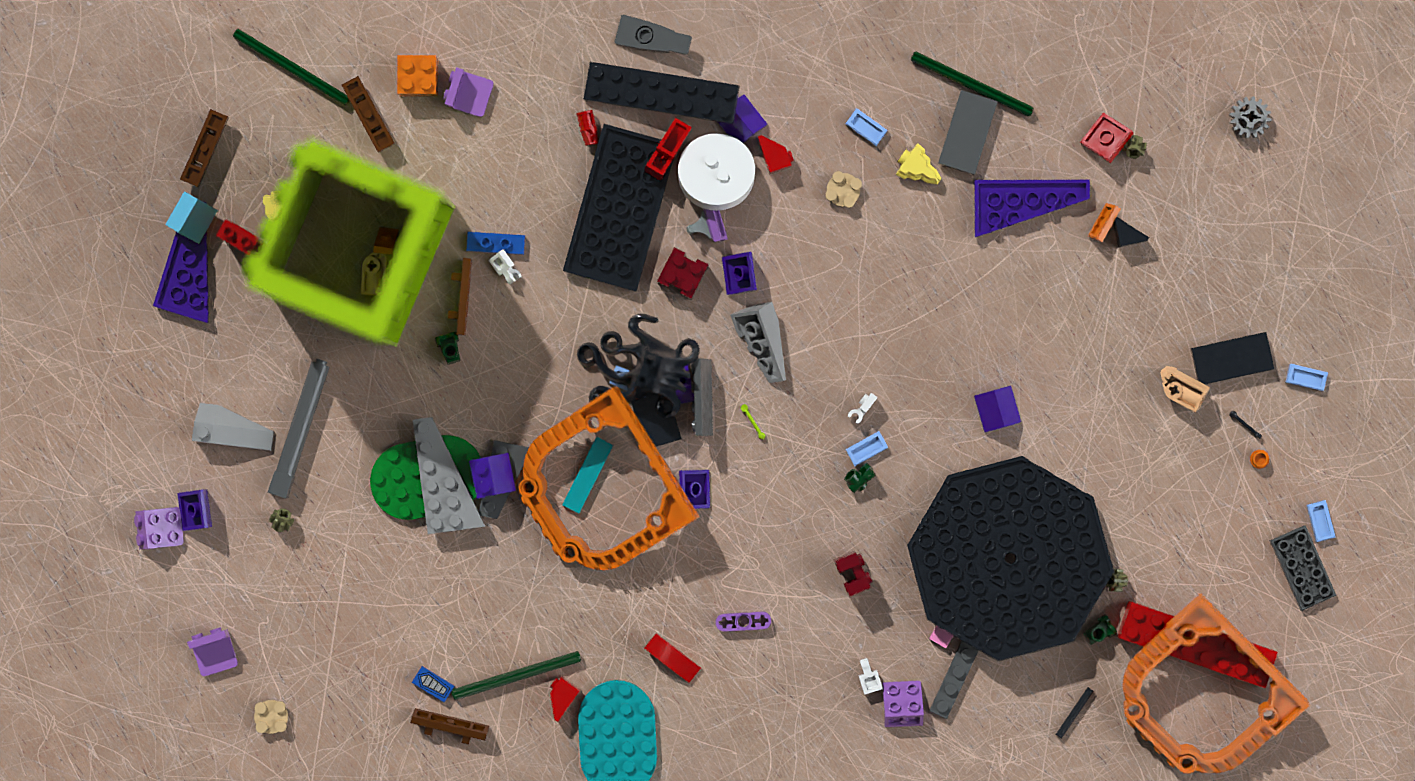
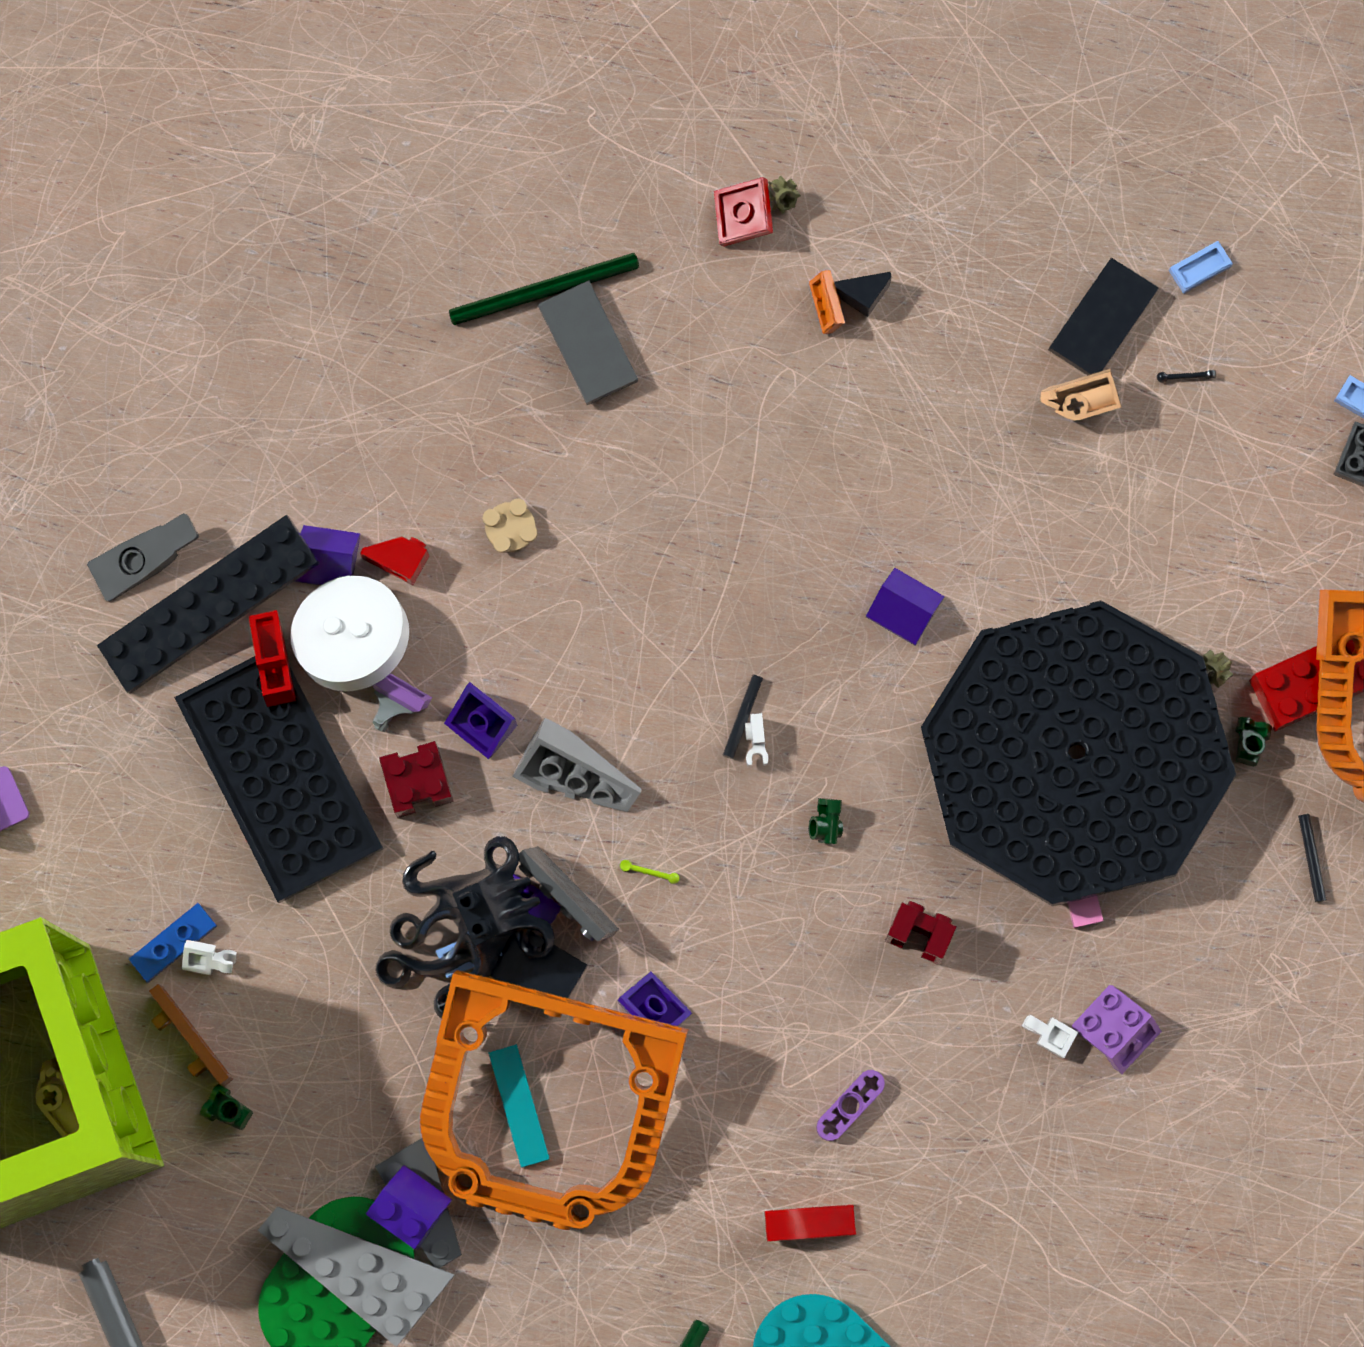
camera: 40 degrees left, 10 degrees down
(386, 240) = (40, 1055): orange plate -> none
(588, 127) = (160, 718): red hinge -> none
(866, 127) = (472, 438): light blue tile -> none
(866, 448) = (803, 783): light blue tile -> none
(867, 389) = (742, 717): none -> black bar
(917, 166) = (567, 427): light yellow rock -> none
(953, 680) = (1145, 946): dark grey plate -> none
(1014, 201) = (707, 370): dark purple wing -> none
(1248, 126) = (872, 66): light grey gear -> none
(1259, 459) = (1237, 397): orange plate -> none

